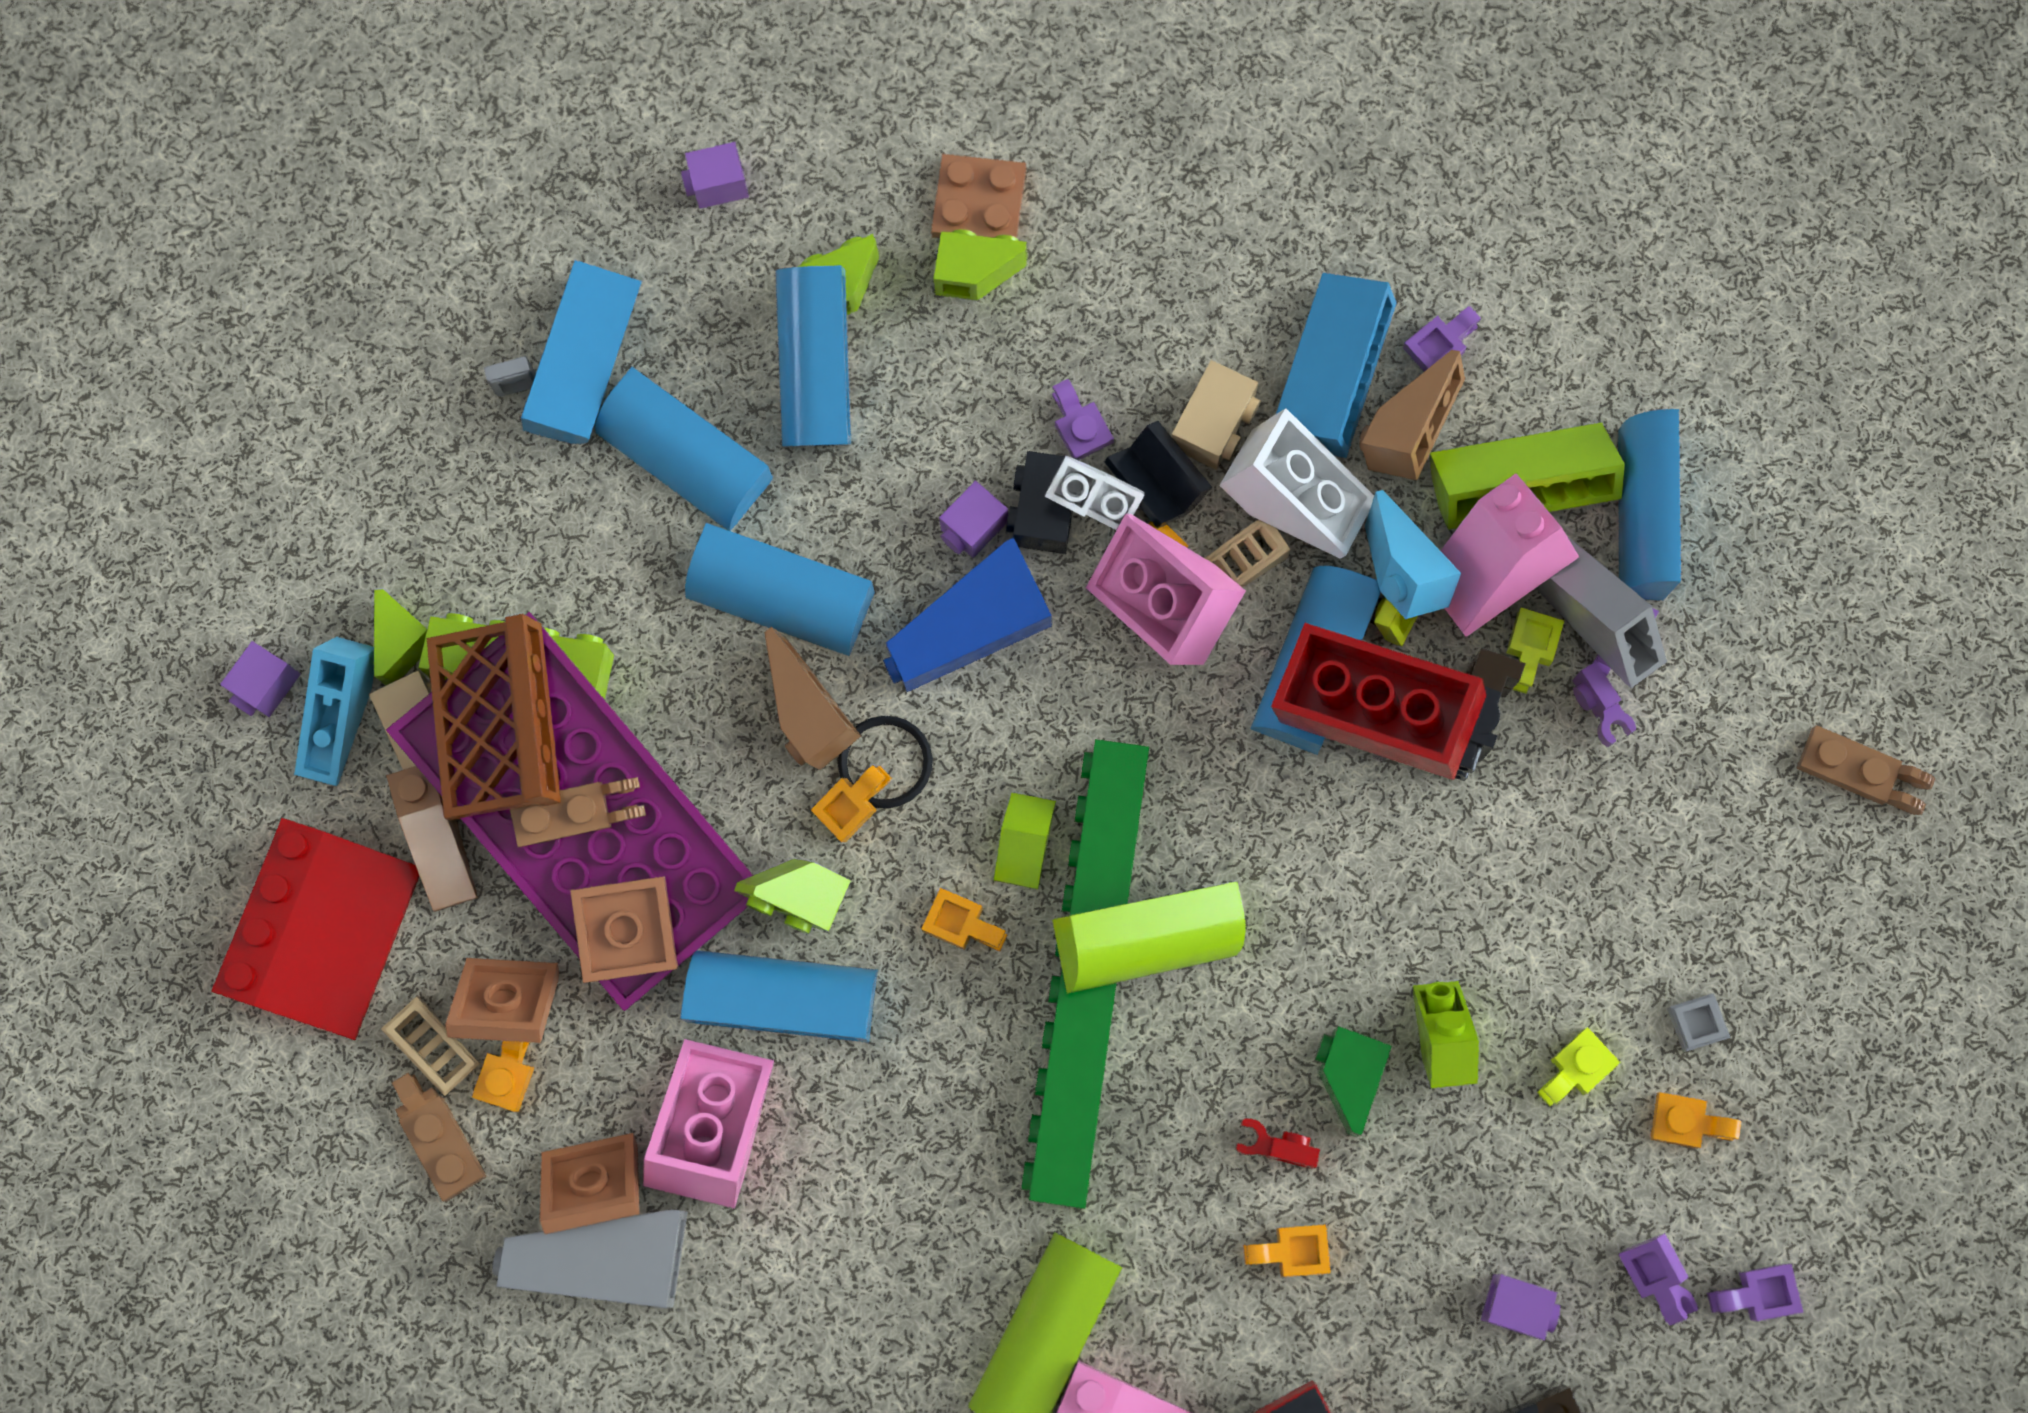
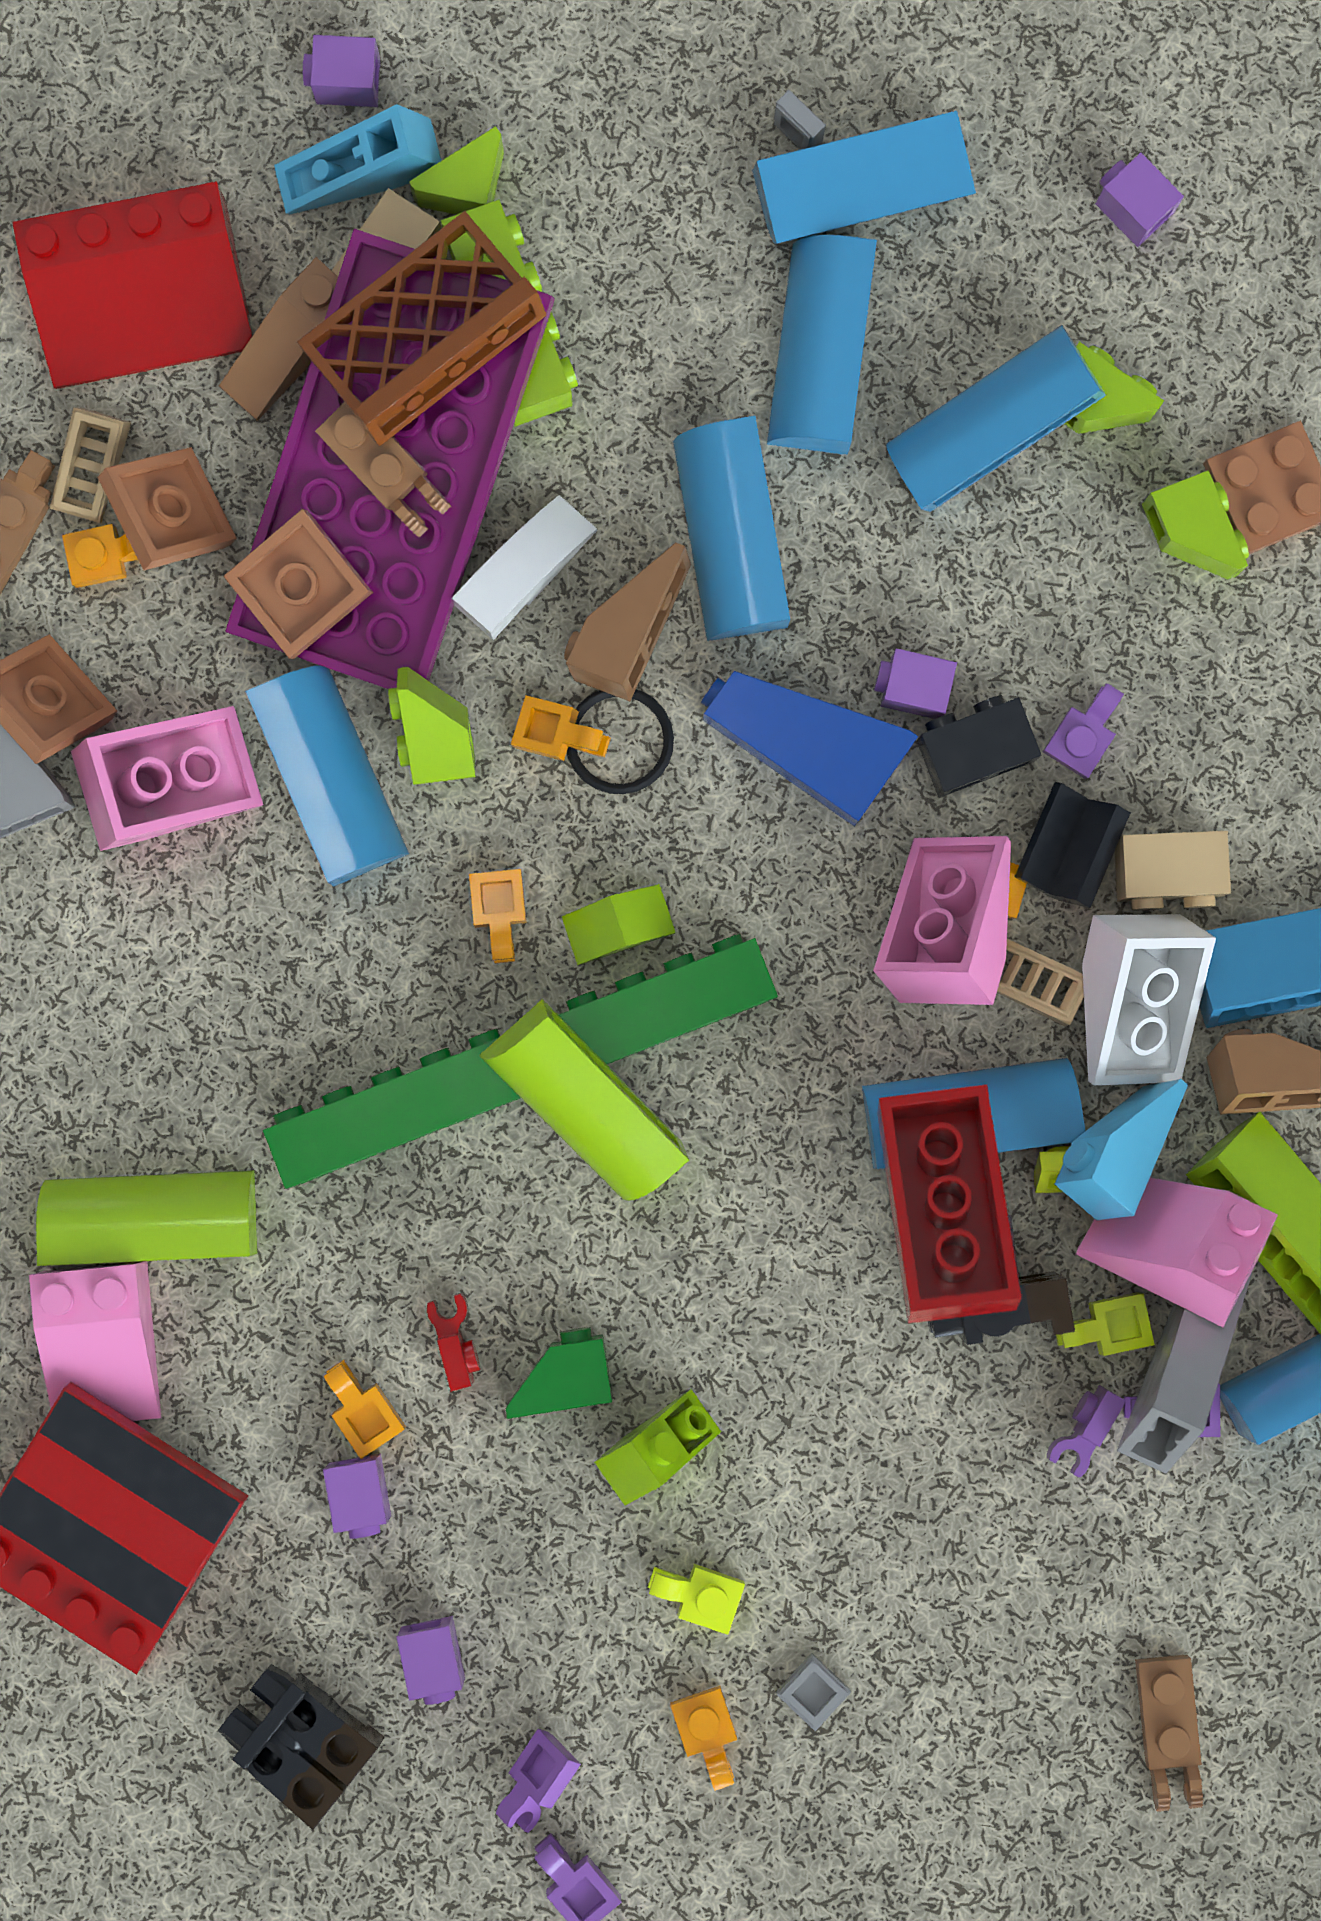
camera: 50 degrees right, 10 degrees up
(713, 757) = (523, 566): none -> white slope
(1093, 493) = (1010, 790): white slope -> none
(1358, 1292) = (357, 1495): none -> medium lavender brick

